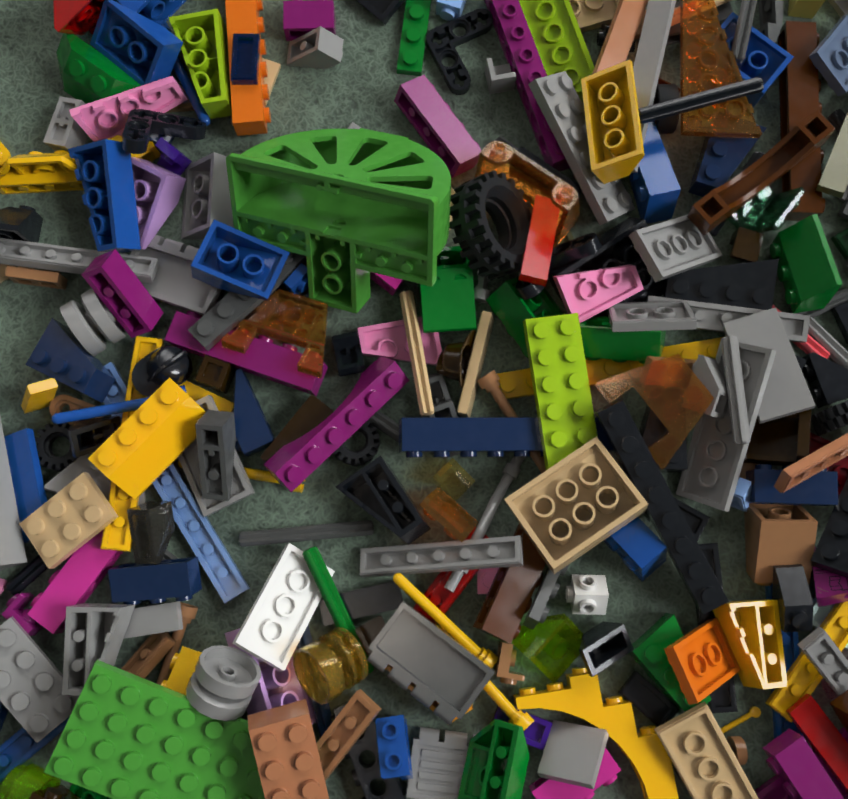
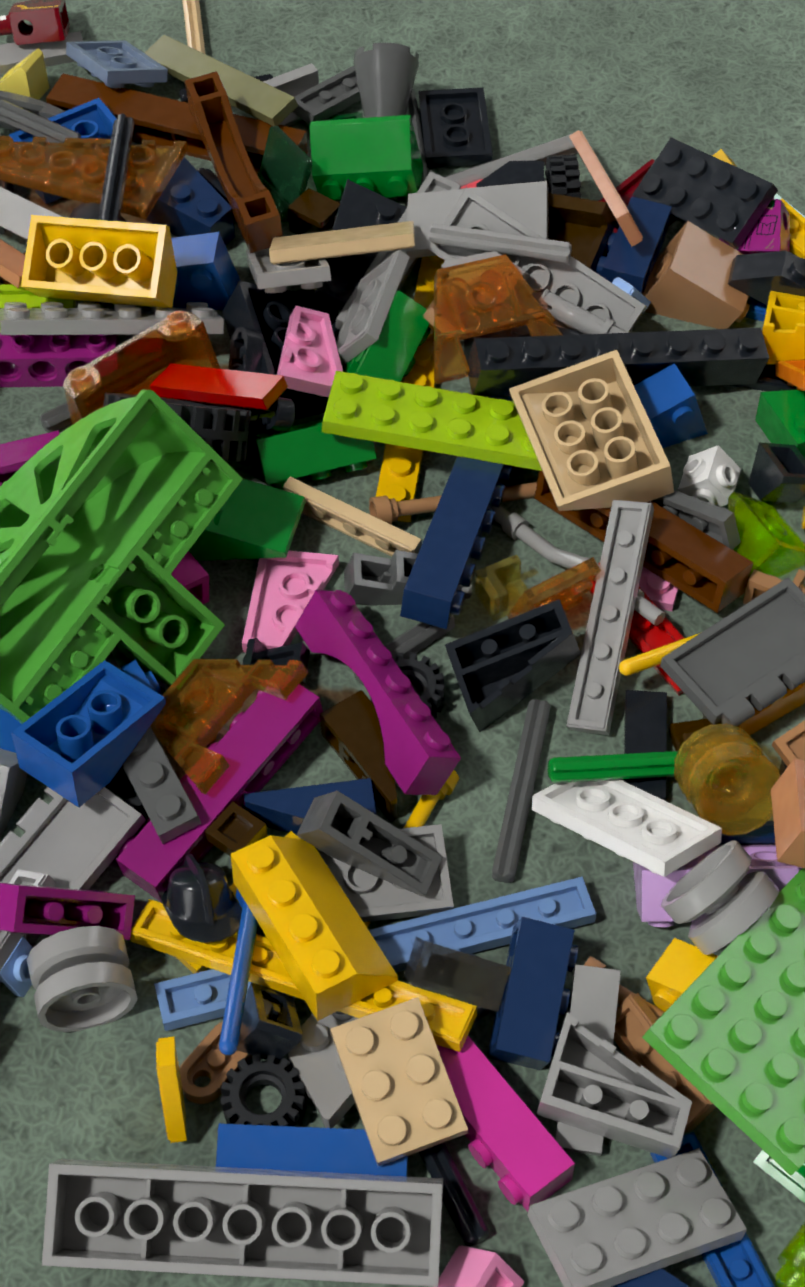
camera: 70 degrees left, 25 degrees down
(15, 609) = (514, 1230): magenta bracket -> none
(66, 360) = (120, 1037): dark blue wedge -> none
(416, 353) = (311, 571): tan axle -> none
(455, 359) = (341, 530): dark brown piece -> none
(696, 469) = (576, 316): none -> light grey pin
(703, 278) = (342, 242): none -> tan tile

